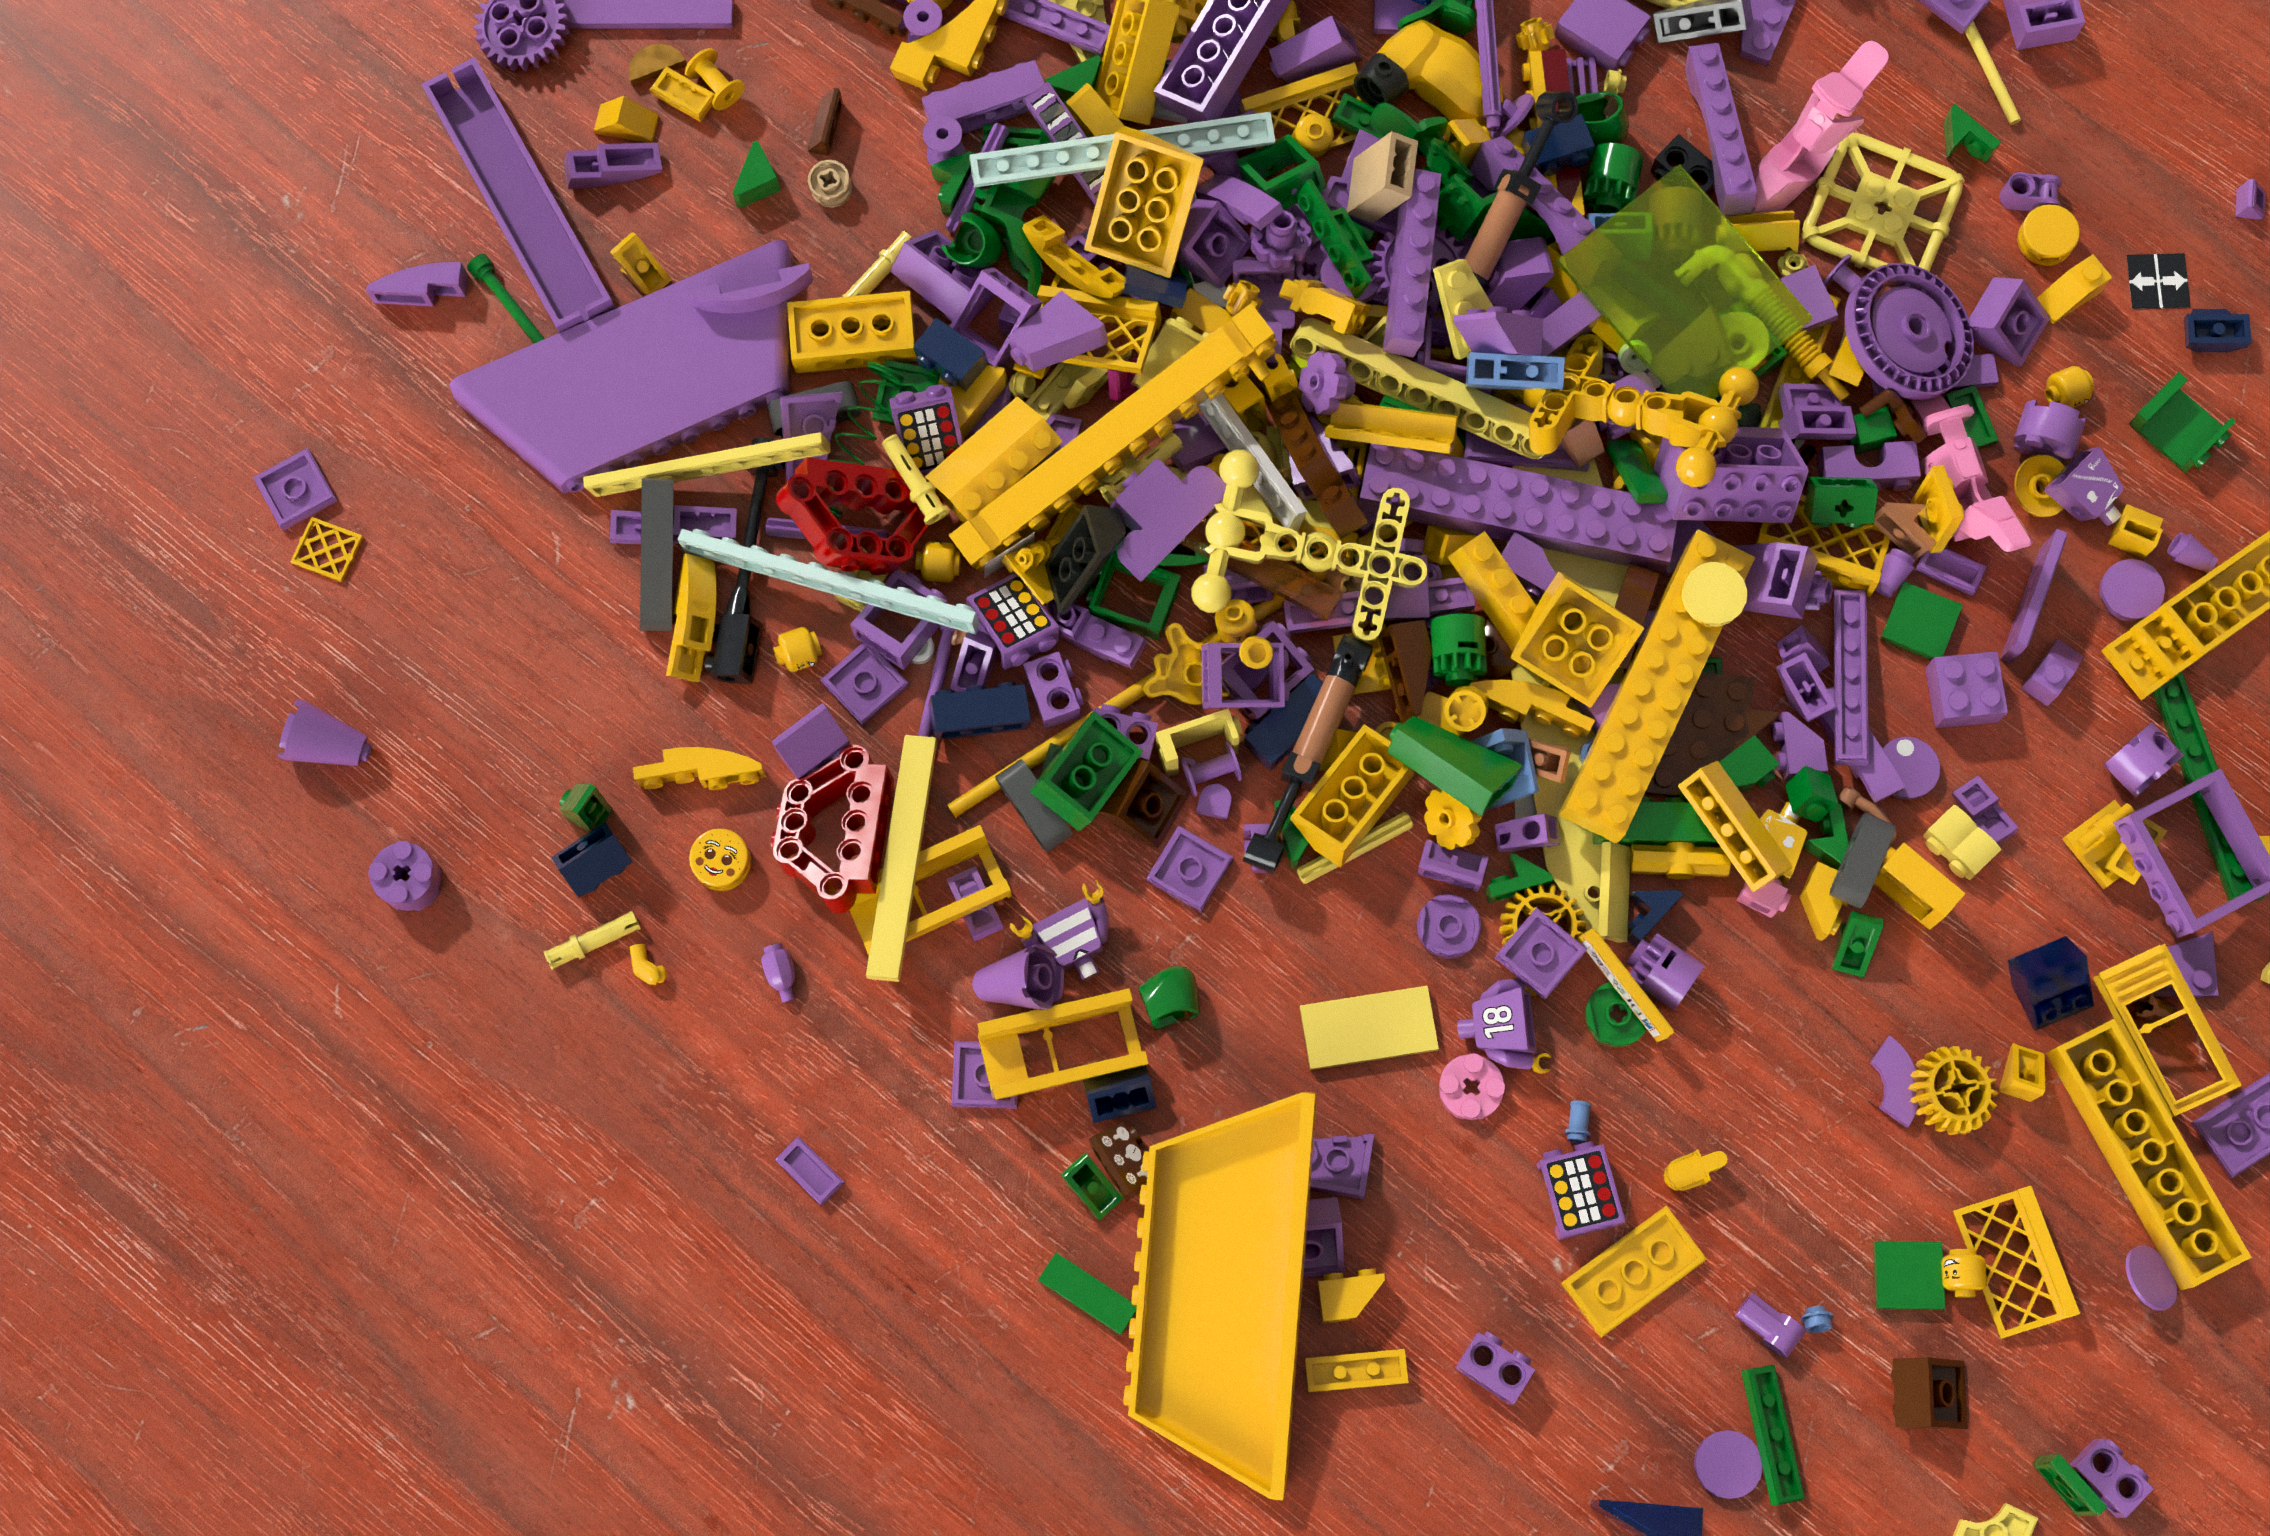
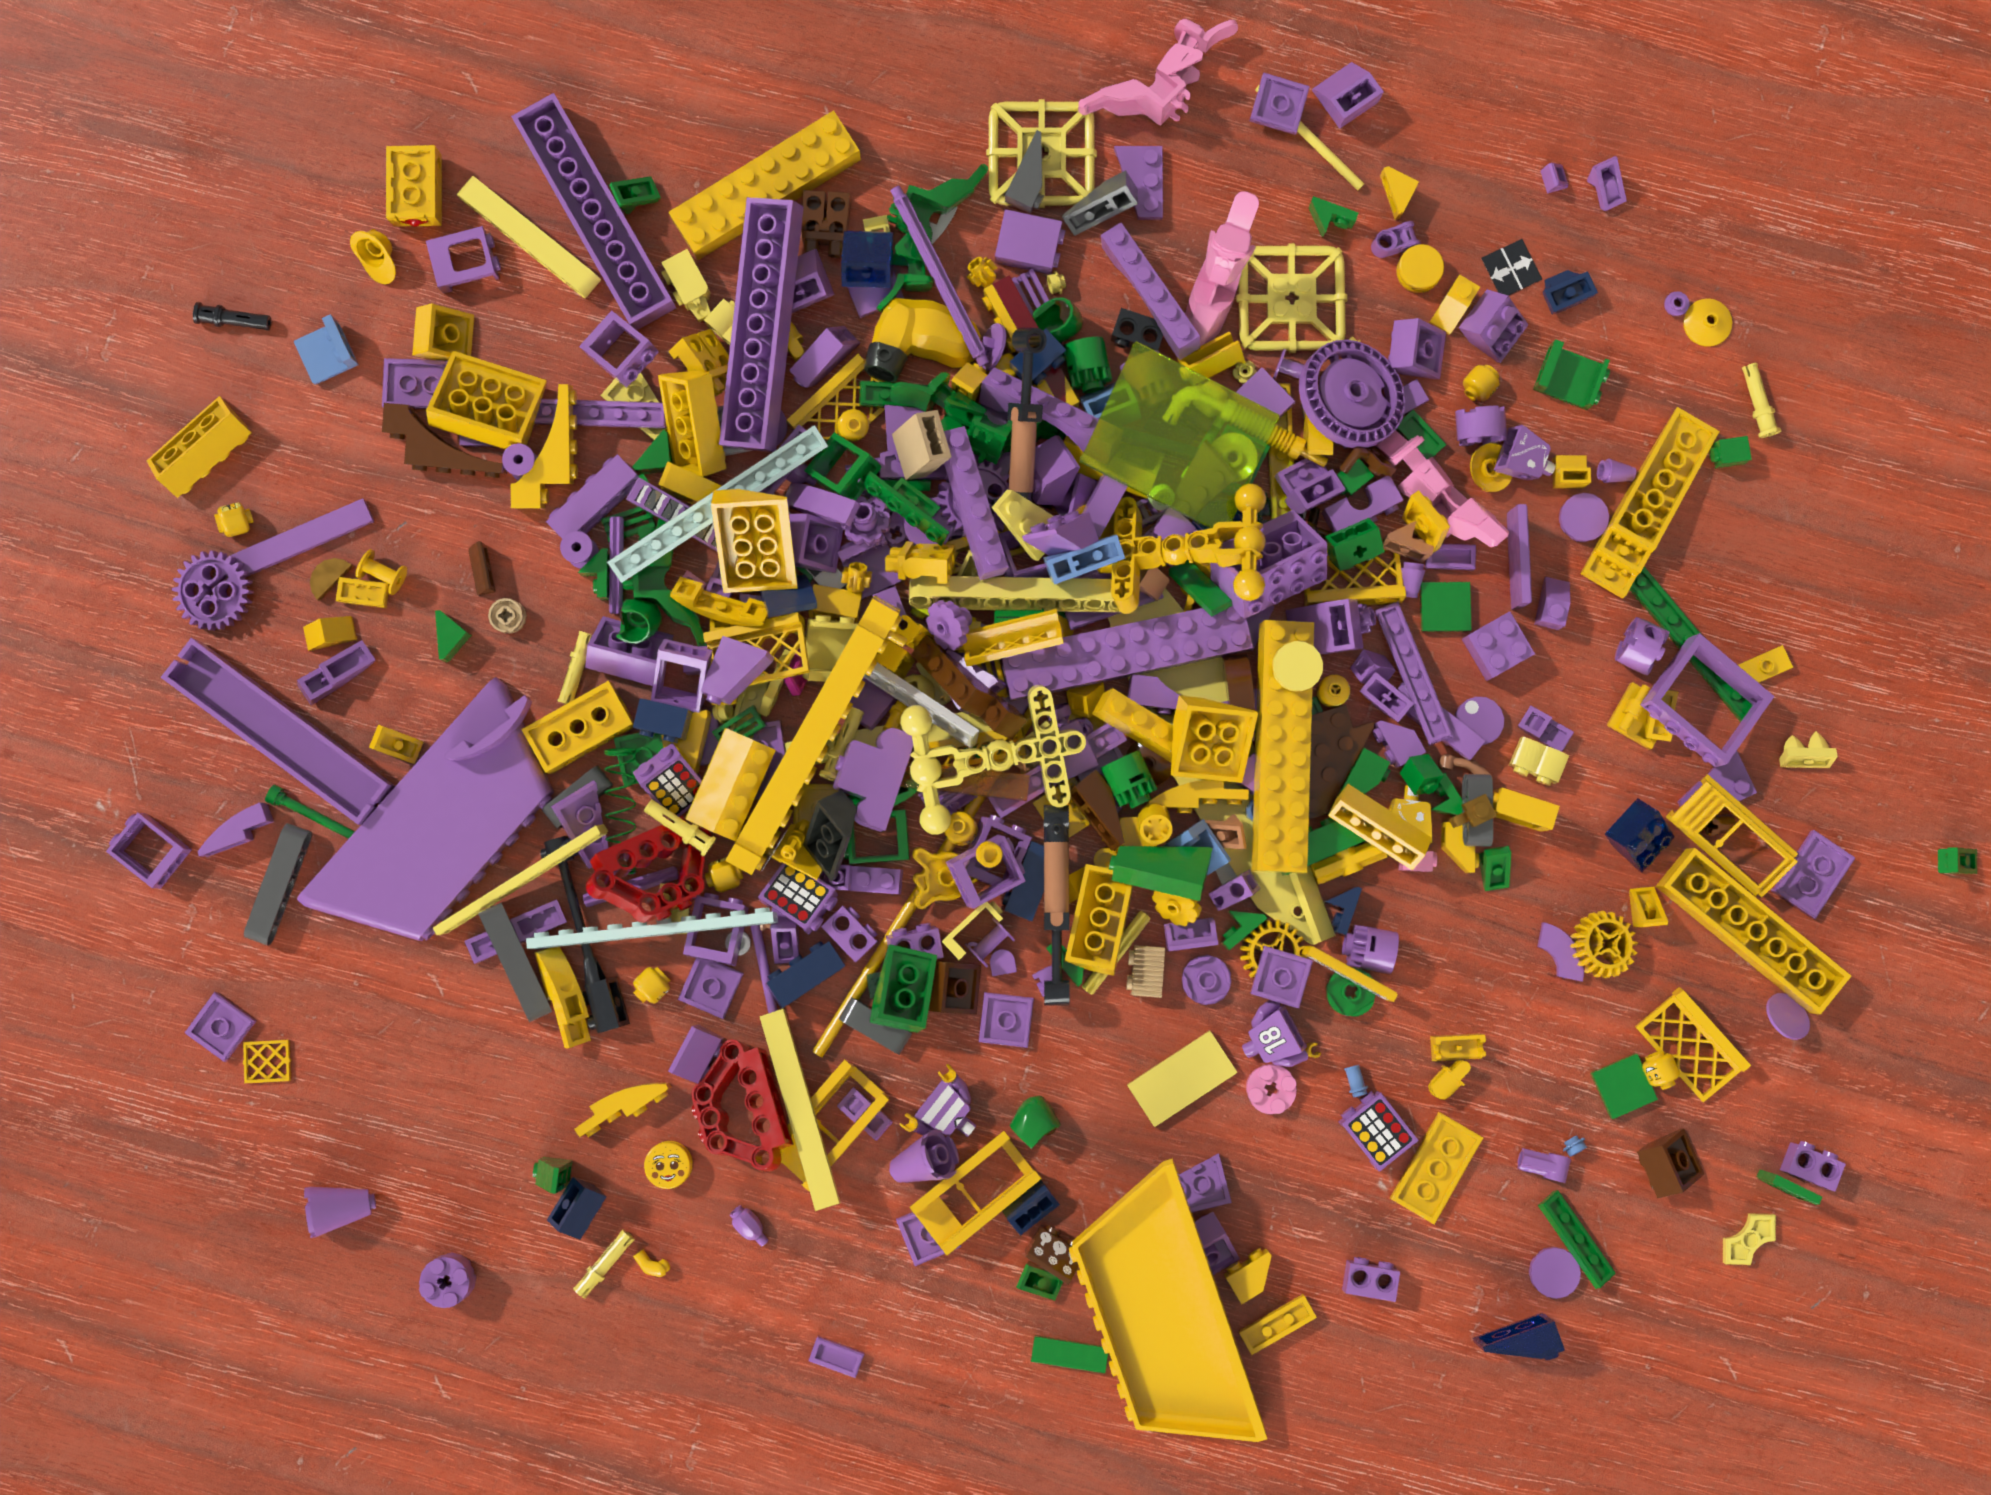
camera: 30 degrees left, 10 degrees up
(326, 289) = (165, 867): none -> medium lavender window
(435, 361) = (277, 884): none -> dark grey beam
(1040, 395) = (756, 717): none -> green tile
(1381, 883) = (1146, 971): none -> tan brick
(1718, 1133) = (1457, 1047): none -> yellow hinge
(1745, 656) = (1325, 694): none -> yellow head
(1859, 854) = (1475, 811): none -> pearl gold plate
(2059, 139) = (1398, 189): none -> yellow slope
(2111, 331) = (1494, 325): none -> medium lavender slope

